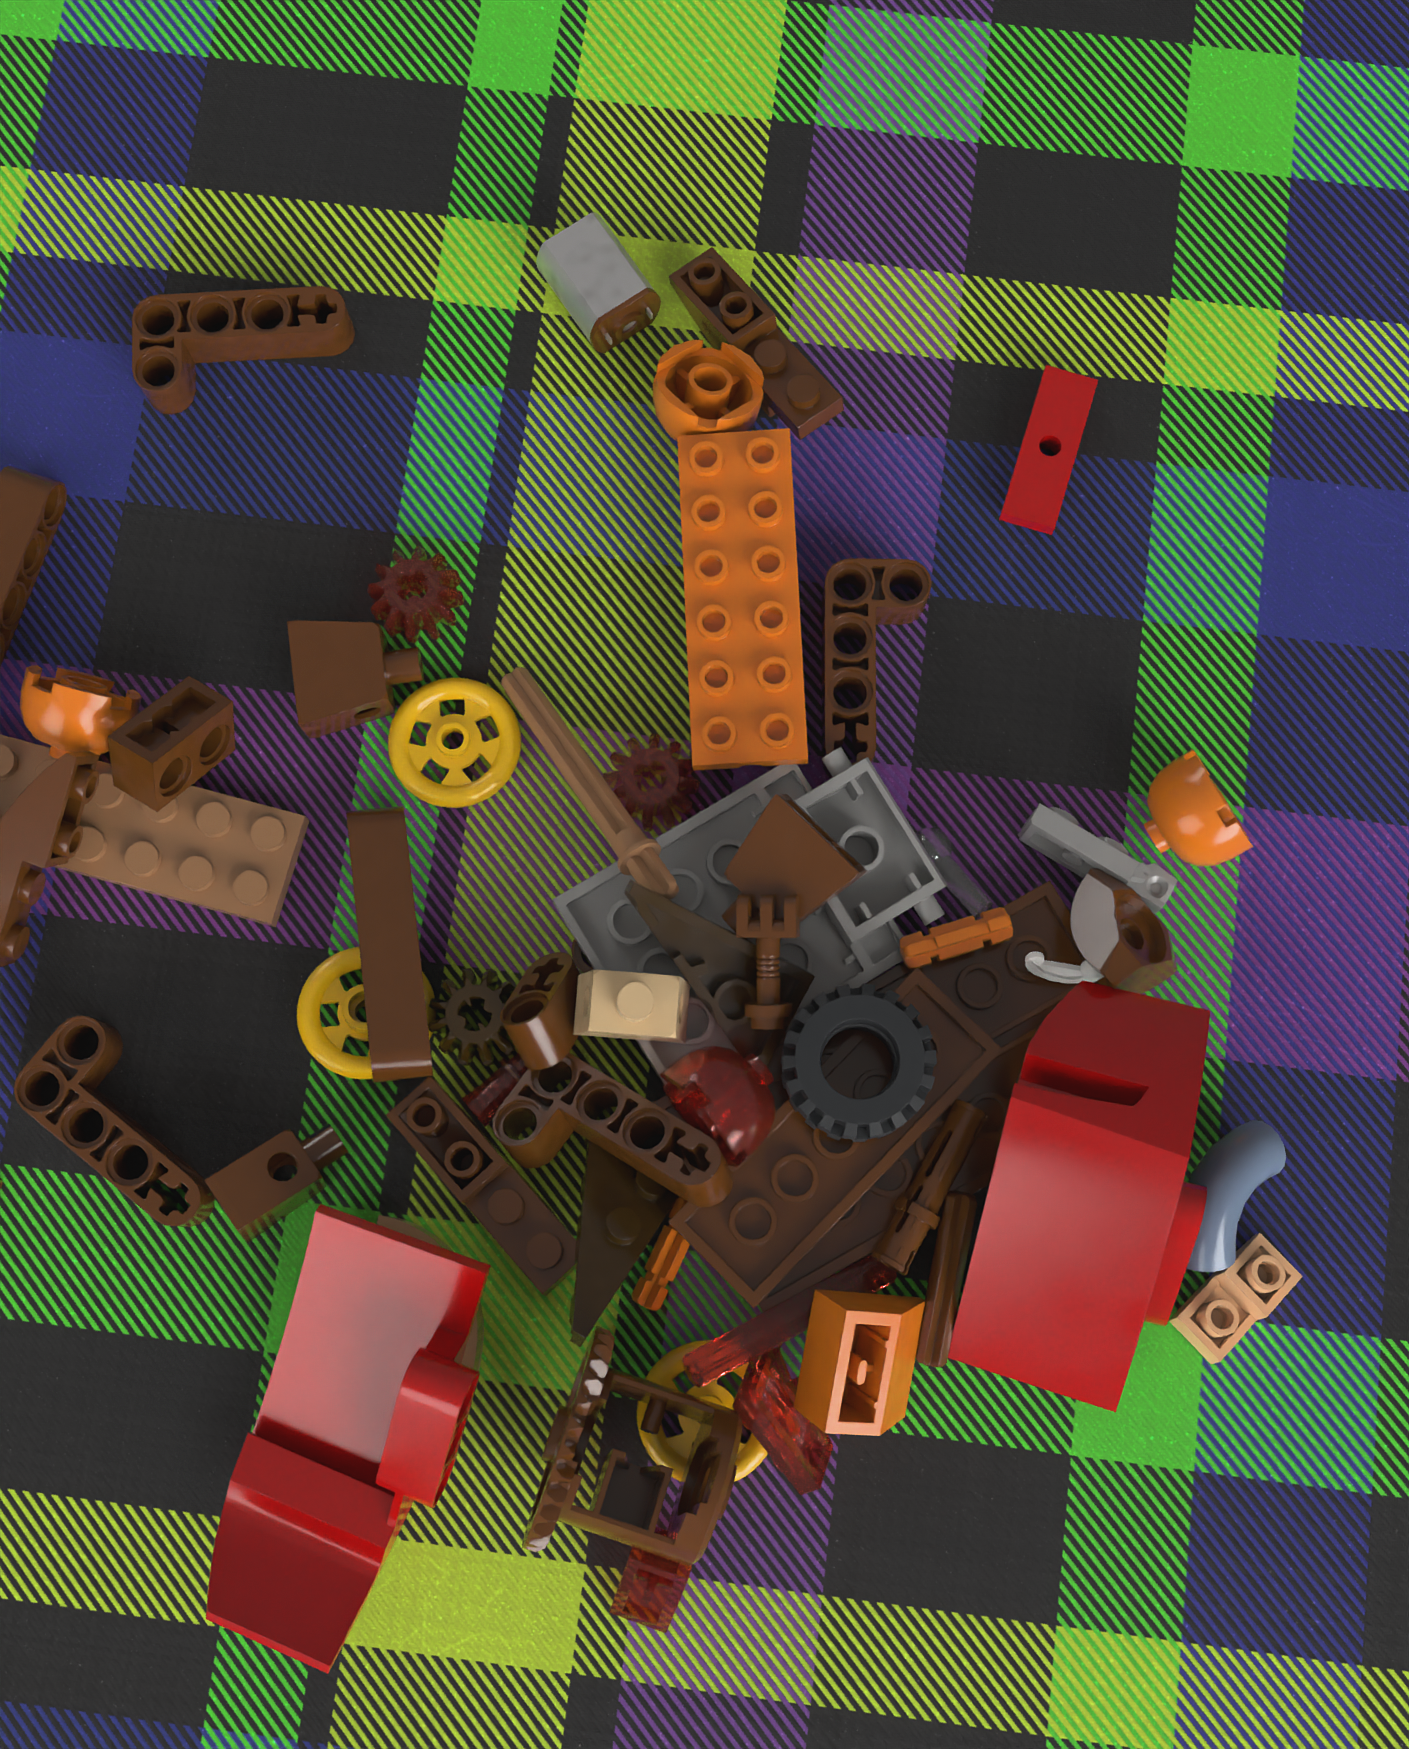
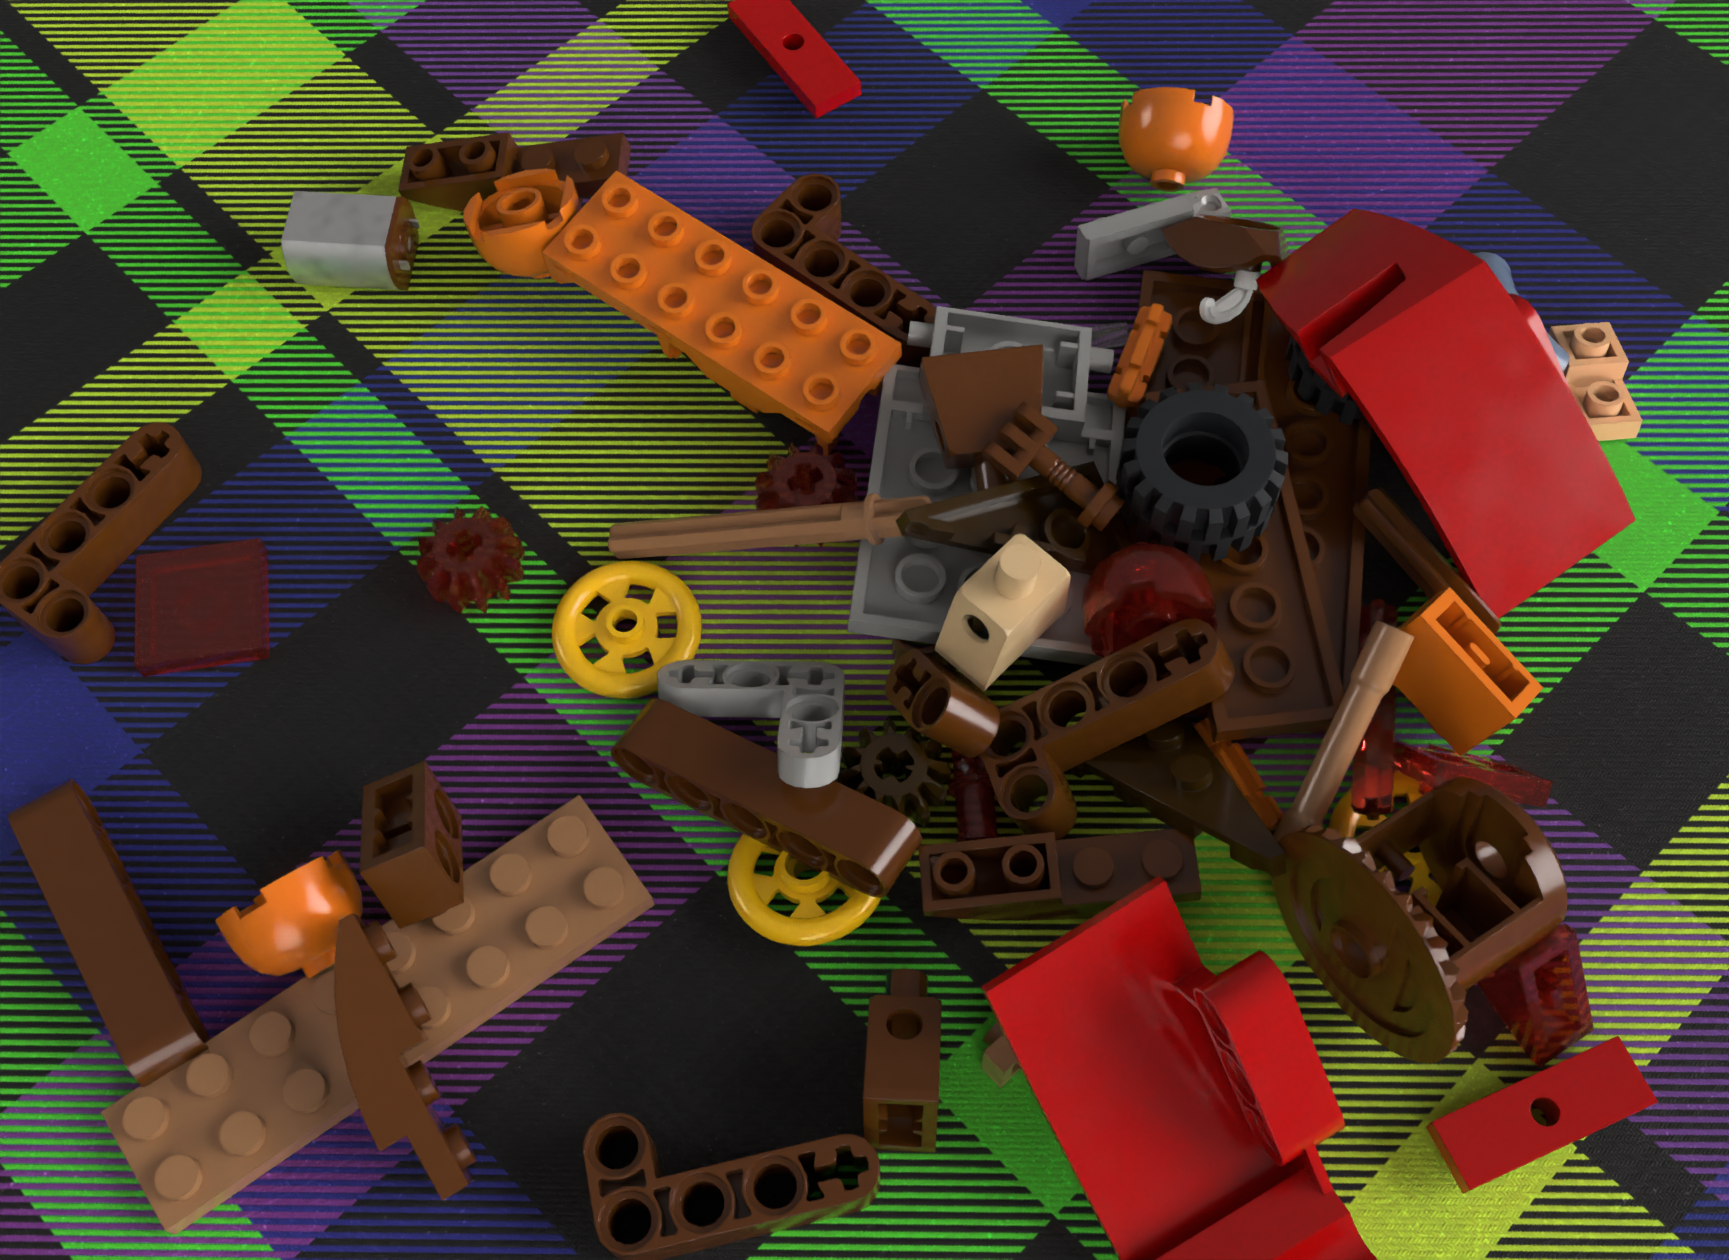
camera: 50 degrees left, 15 degrees down
(248, 445) = (201, 607): none -> clear red tile
(346, 674) = (484, 665): reddish brown torso -> none
(473, 908) = (800, 693): none -> light grey beam
(601, 1656) = (1574, 1095): none -> red tile
(778, 1307) = (1369, 682): none -> medium nougat piece
(925, 1196) = (1343, 517): reddish brown pin -> none

